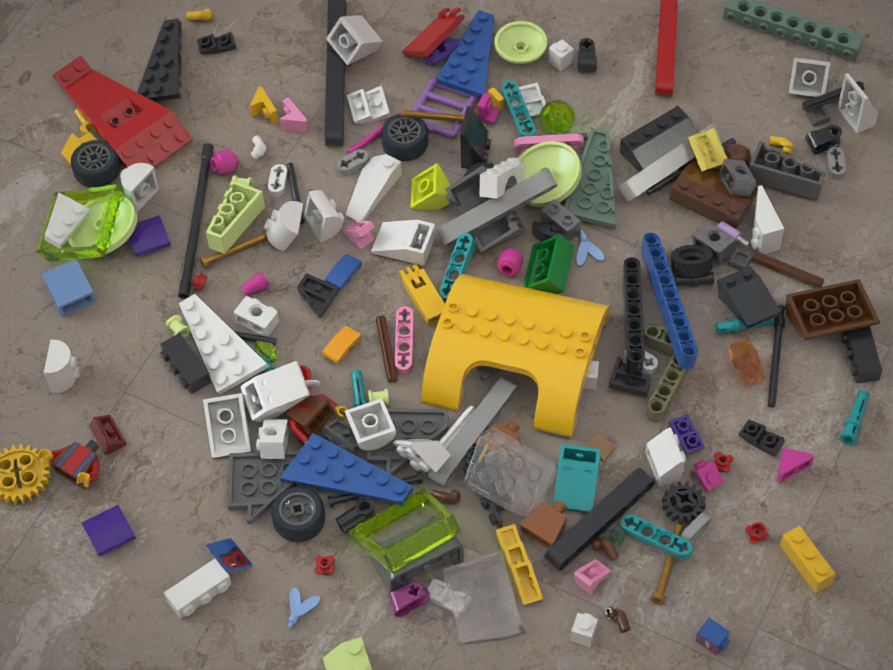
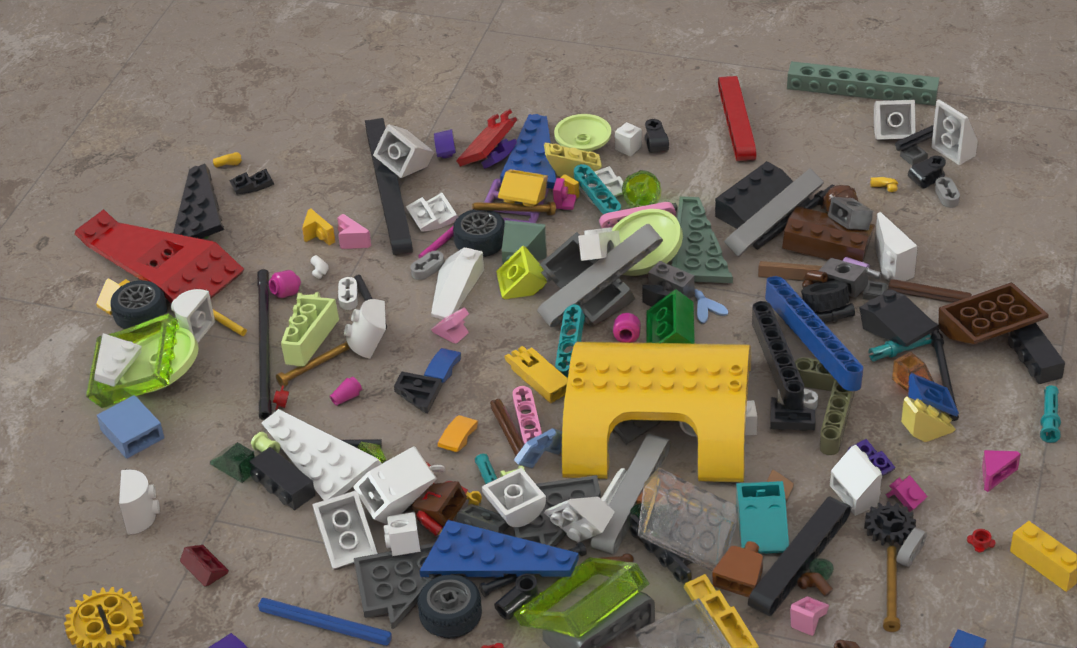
camera: 10 degrees left, 15 degrees down
(74, 462) = (171, 597): torso -> none
(85, 123) = (119, 273): yellow bar -> none
(149, 236) = (213, 365): dark purple slope -> none
(149, 338) = (234, 461): none -> clear green slope
(170, 194) = (229, 323): none -> yellow bar
(195, 507) = (325, 621): none -> blue axle
(246, 316) = (354, 421): white brick -> none
(322, 216) = (406, 315): white brick -> none
(395, 30) = (444, 143): none -> dark purple slope
(402, 374) = (533, 449): none -> medium blue tile
(405, 240) = (505, 325): white slope -> none
(442, 153) = (524, 234): none -> sand green slope
(451, 98) = (523, 187): none -> yellow slope
(473, 140) = (557, 220): black slope -> none
(498, 71) = (566, 159): none -> light yellow slope
(658, 534) = (871, 559): teal beam -> none
(669, 224) = (785, 270): none -> medium nougat slope
(687, 238) = (813, 277): none -> reddish brown arm
(708, 149) = (812, 192): light yellow bracket -> none
(723, 467) = (921, 478): red plate -> none
(741, 407) = (924, 421): none -> light yellow slope
(755, 383) = (931, 394): none -> blue slope
(761, 438) = (950, 449): black slope -> none
(785, 172) = (902, 205): dark grey wedge -> none

